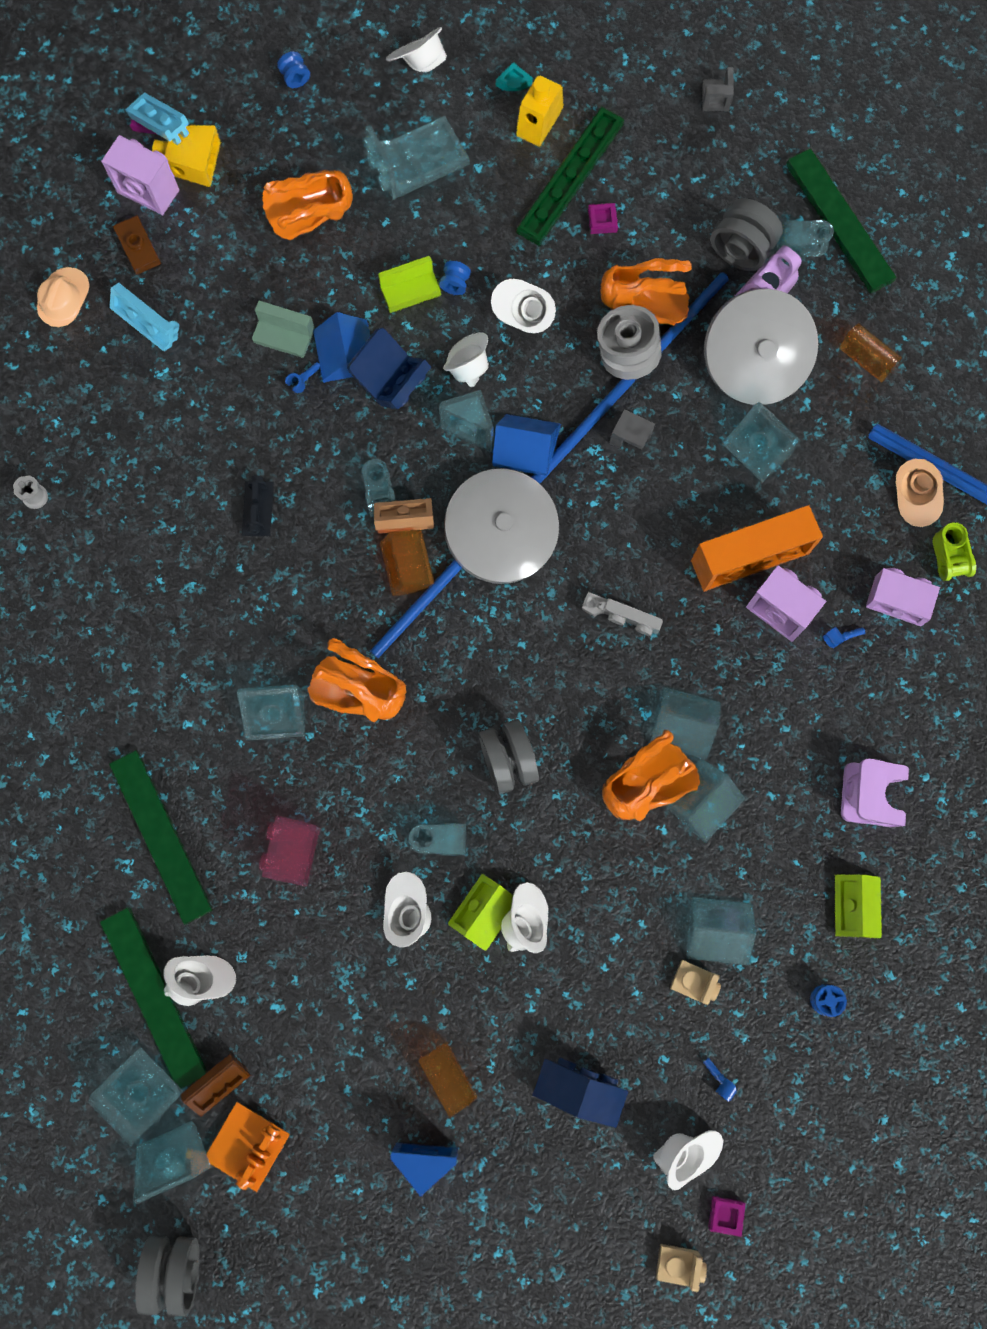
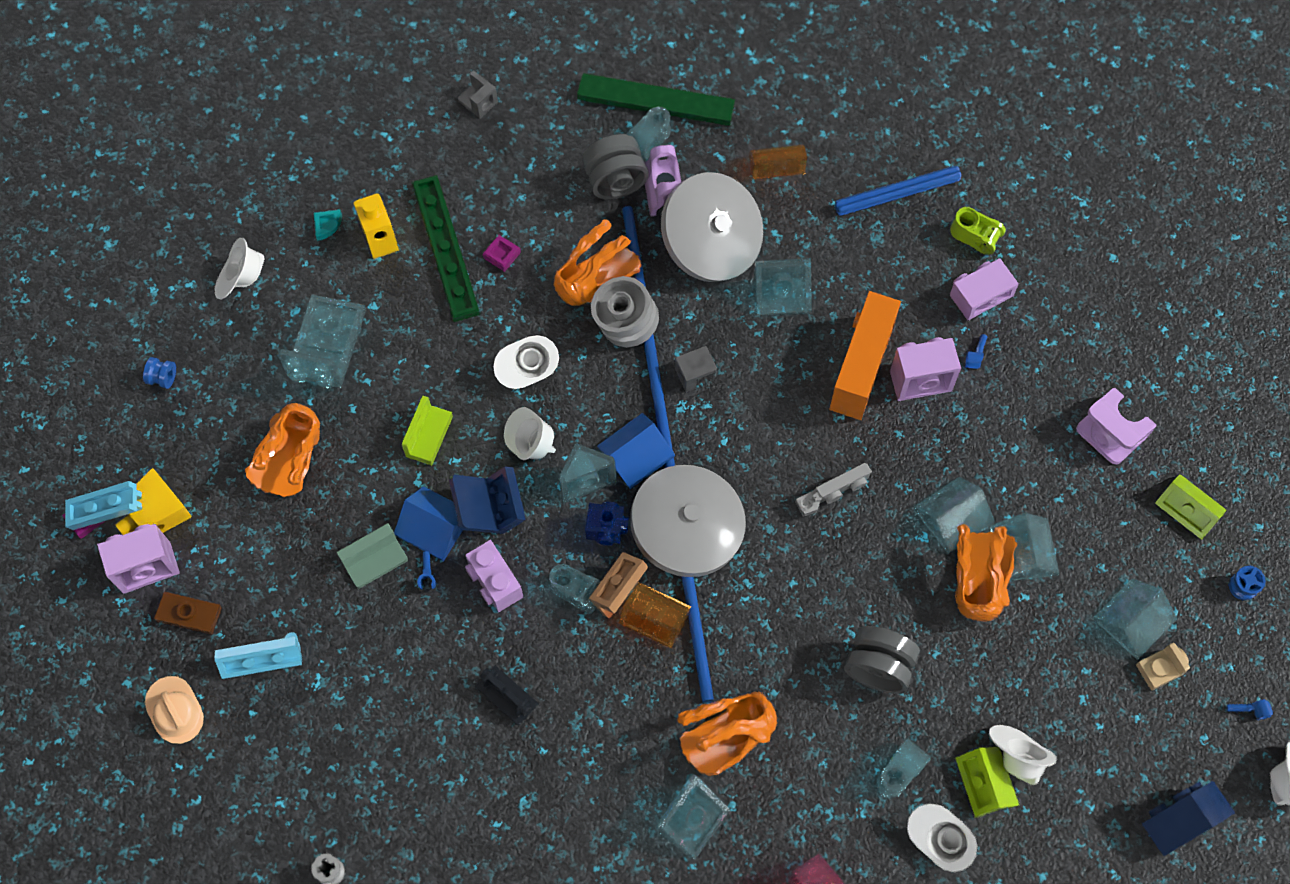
camera: 50 degrees left, 10 degrees down
(337, 424) = (494, 576): none -> lavender brick
(446, 468) = (606, 523): none -> clear blue brick
(454, 278) = (452, 393): blue wheel -> none
(919, 492) = (914, 215): light nougat piece -> none

